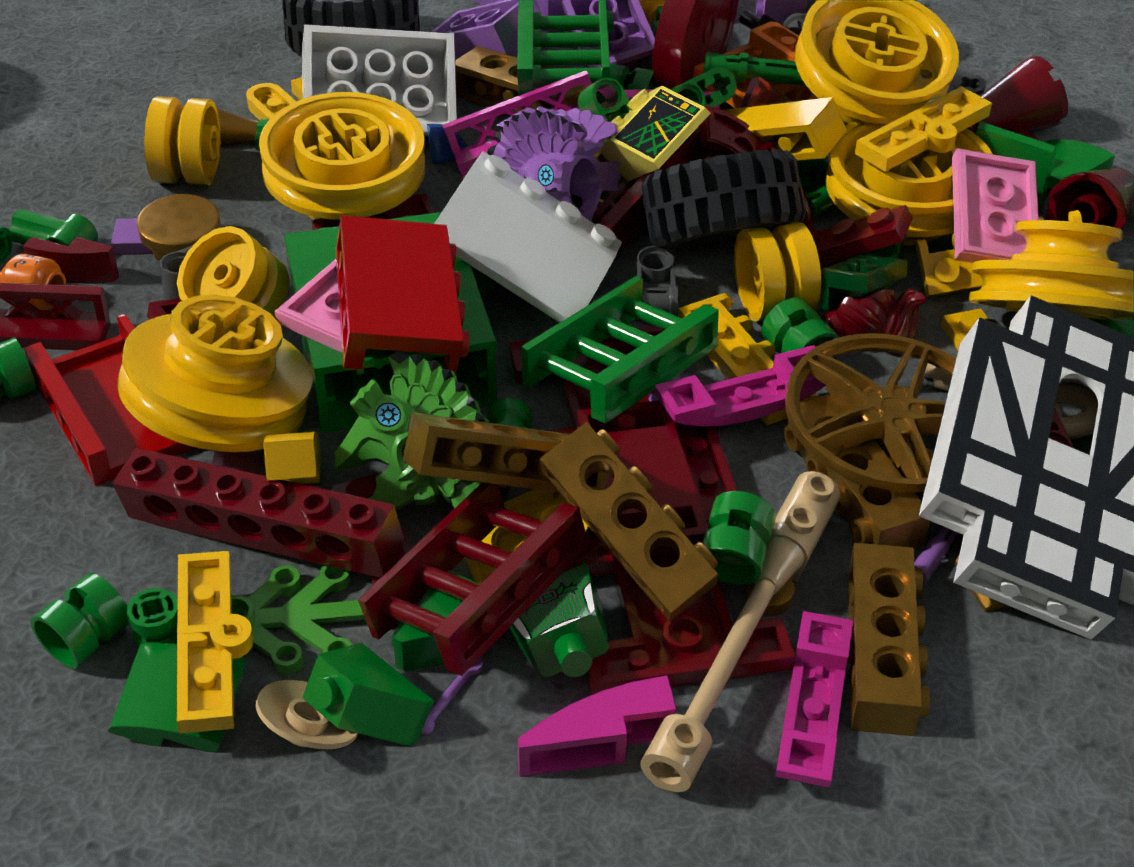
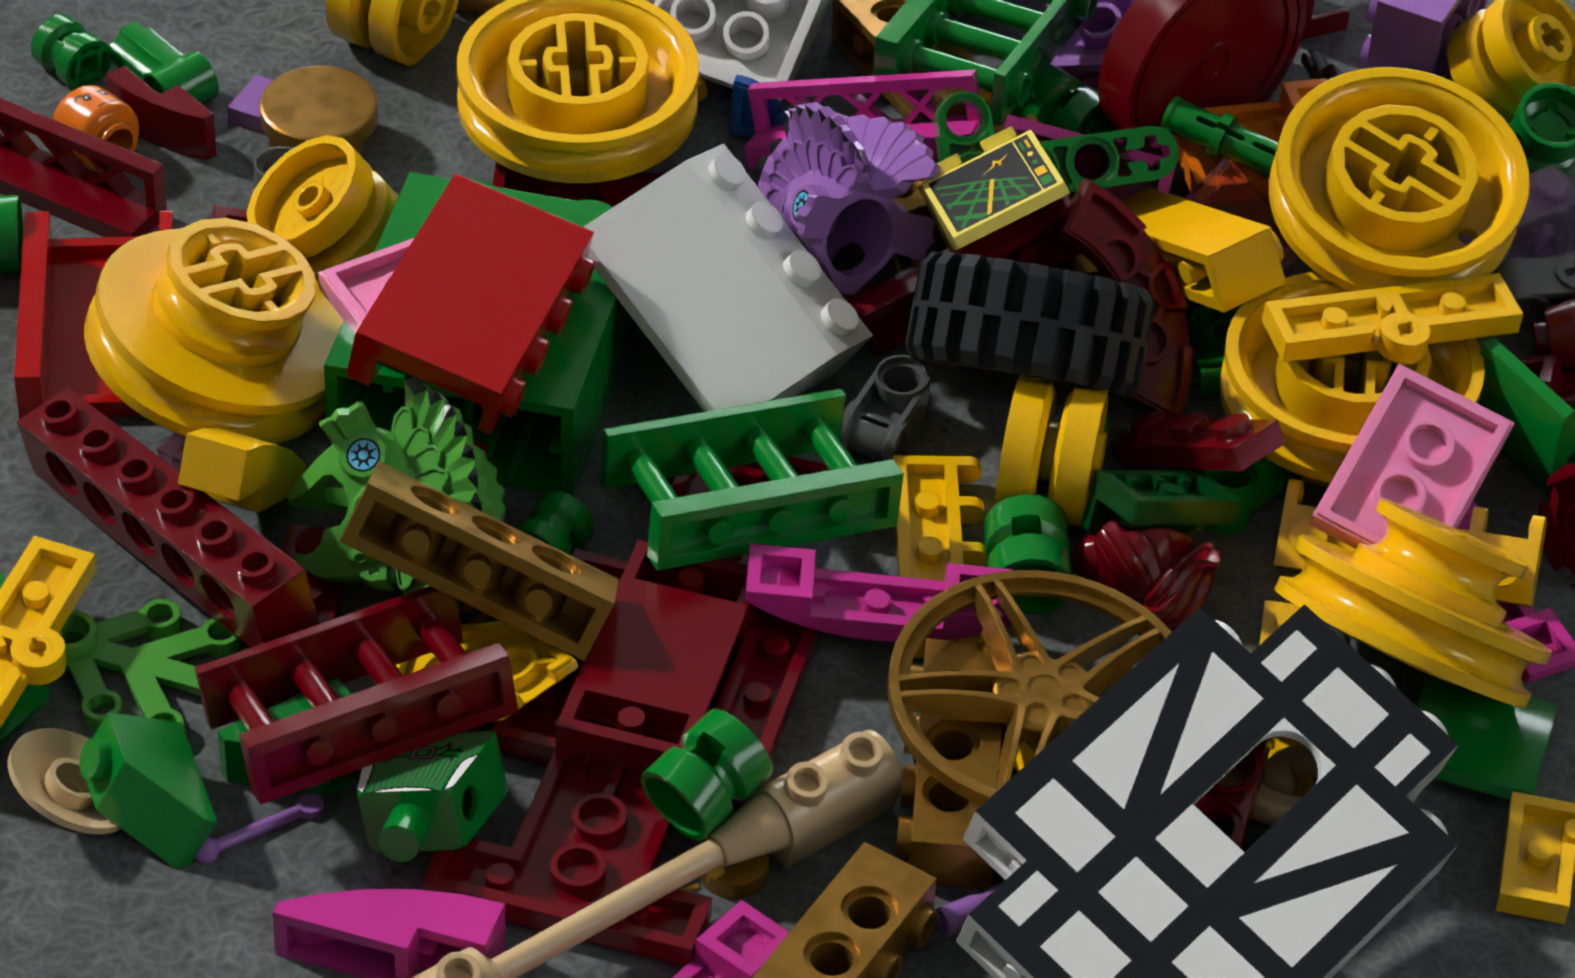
camera: 25 degrees right, 0 degrees up
(667, 587) = (528, 605): pearl gold brick -> none

